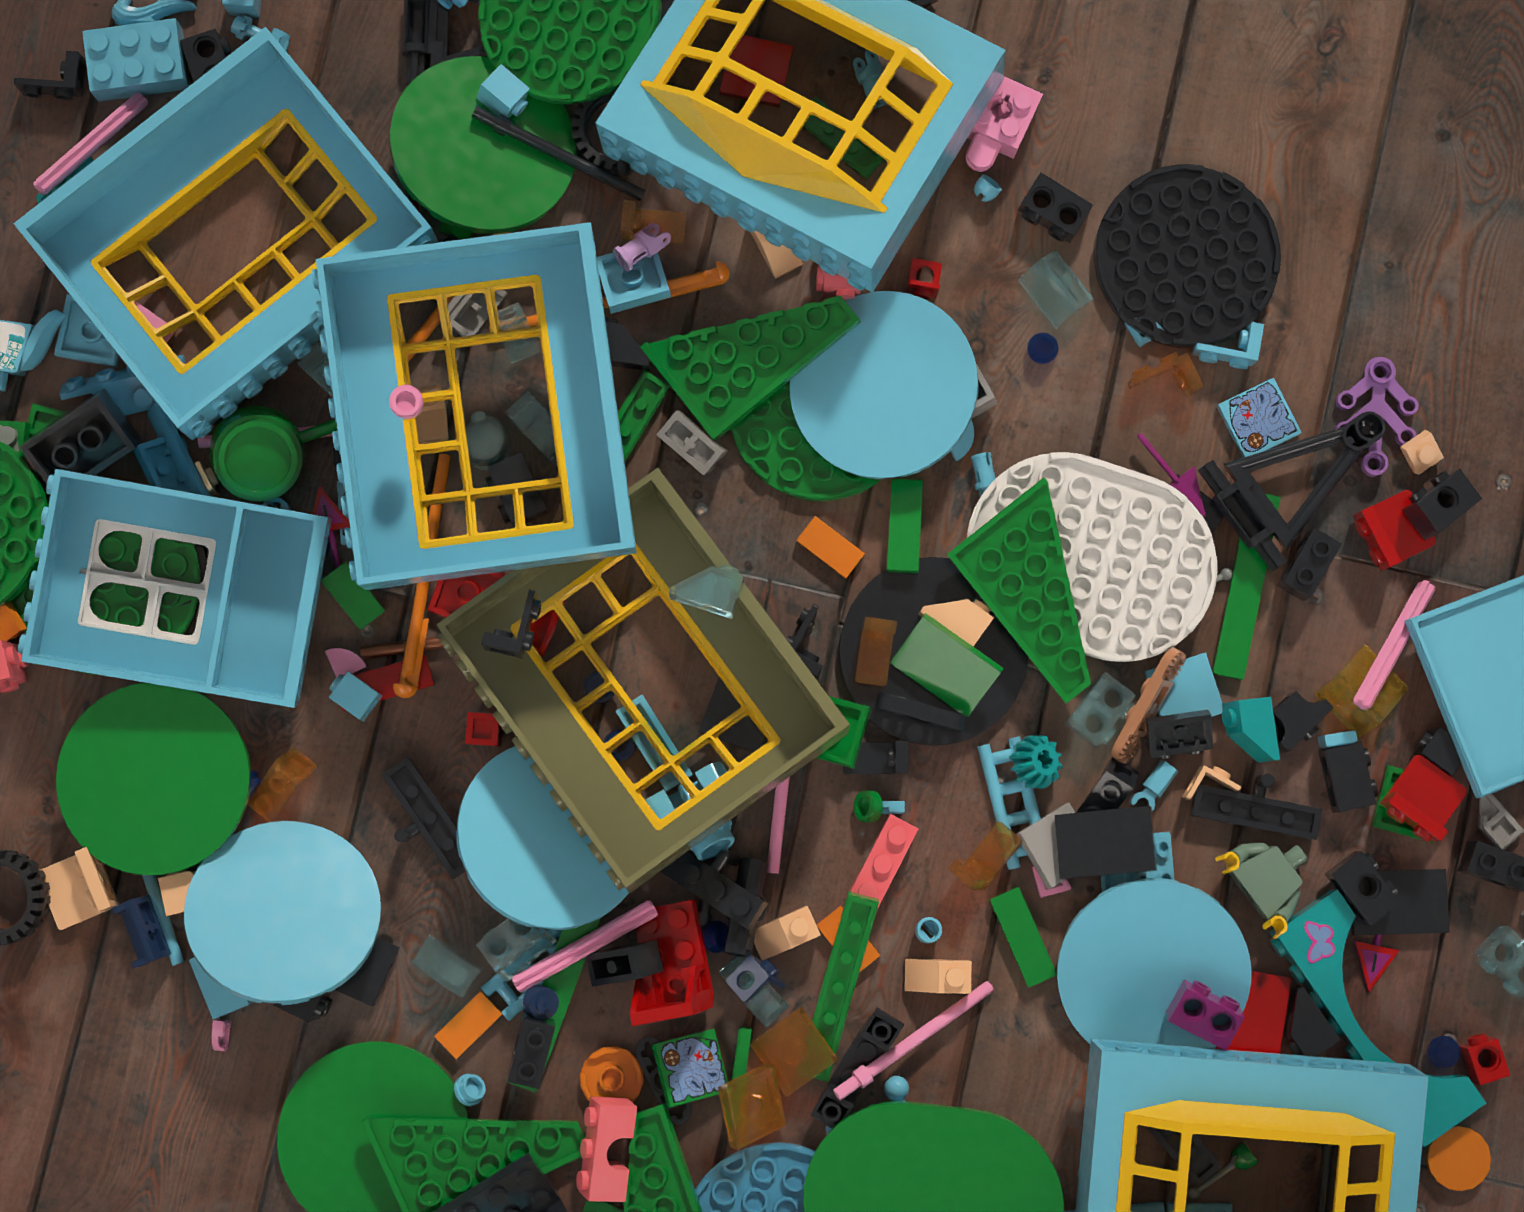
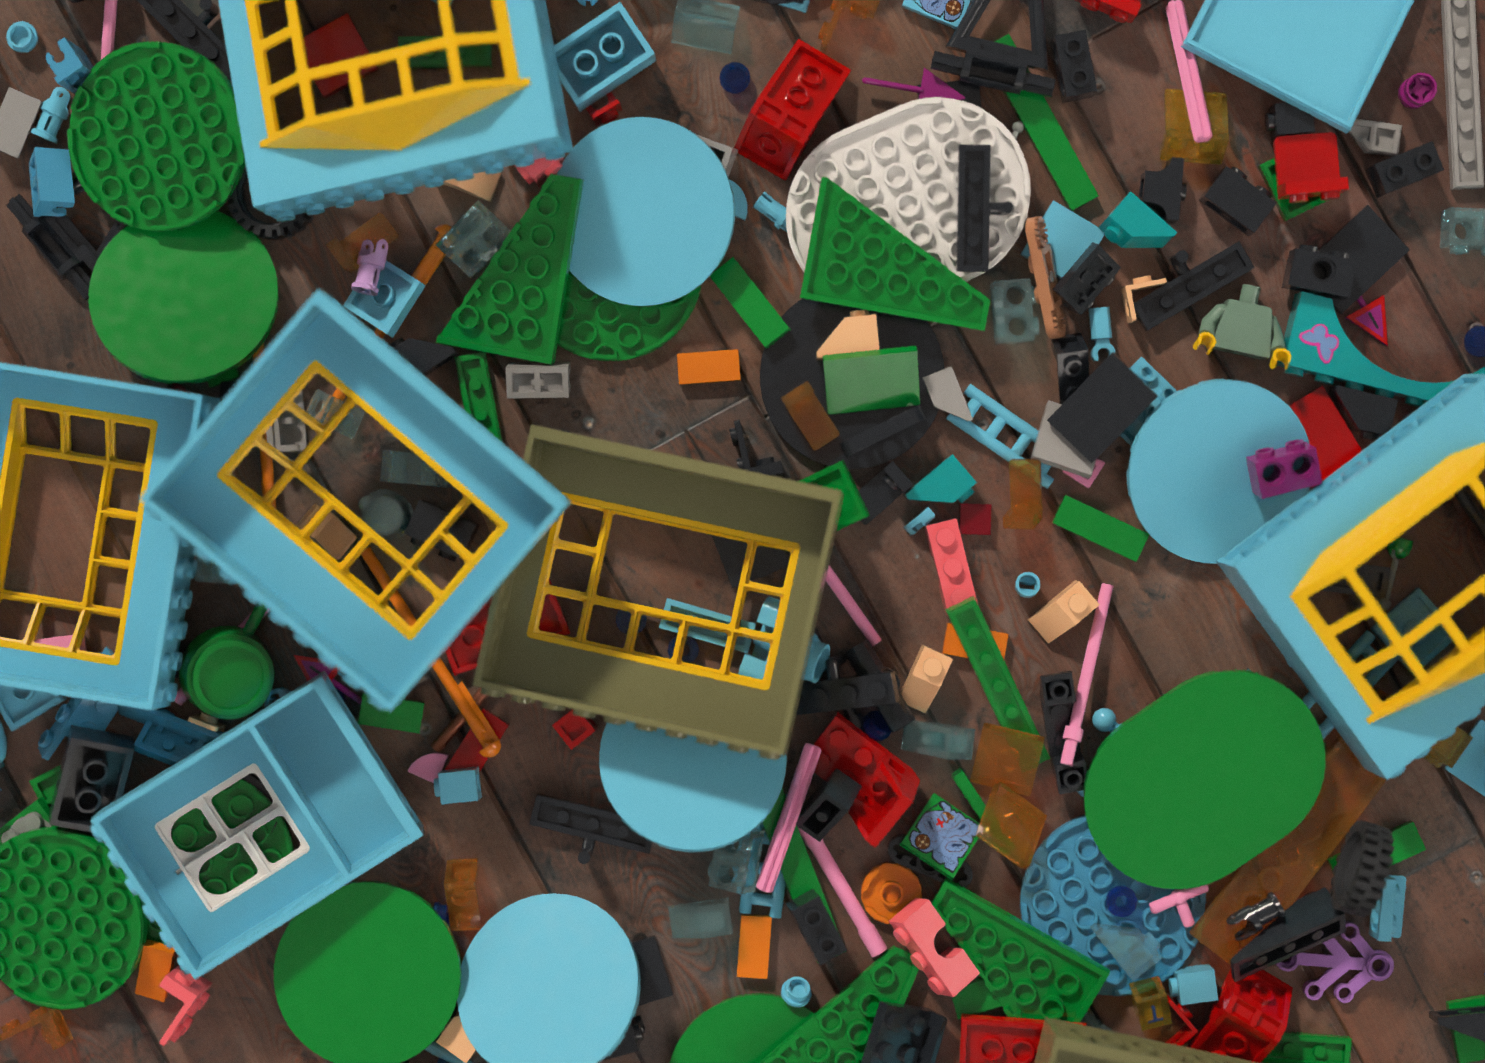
camera: 30 degrees left, 5 degrees up
(406, 402) = (303, 545): bright pink tile -> none
(503, 93) = (164, 243): medium azure brick -> none
(503, 125) = (187, 268): black bar -> none
(503, 641) = (532, 655): black bracket -> none
(540, 1002) = (792, 886): dark blue wheel -> none
(567, 1089) = (866, 929): none -> bright pink piece
(711, 590) = (652, 482): clear light blue slope -> none
(737, 288) = (471, 236): none -> clear light blue brick
(762, 972) = (935, 723): dark blue bracket -> none
(868, 806) = (904, 533): green tile -> none
(931, 795) = (944, 484): none -> teal slope
(932, 844) = (975, 519): none -> dark red tile
(956, 244) = (601, 56): none -> medium azure brick
(994, 727) = (946, 393): none -> light grey tile
(1036, 761) = (999, 392): teal gear -> none
(1064, 407) = (790, 109): none -> red bracket
(1140, 603) = (975, 208): none -> black plate
(1337, 739) = (1206, 179): medium azure tile -> none

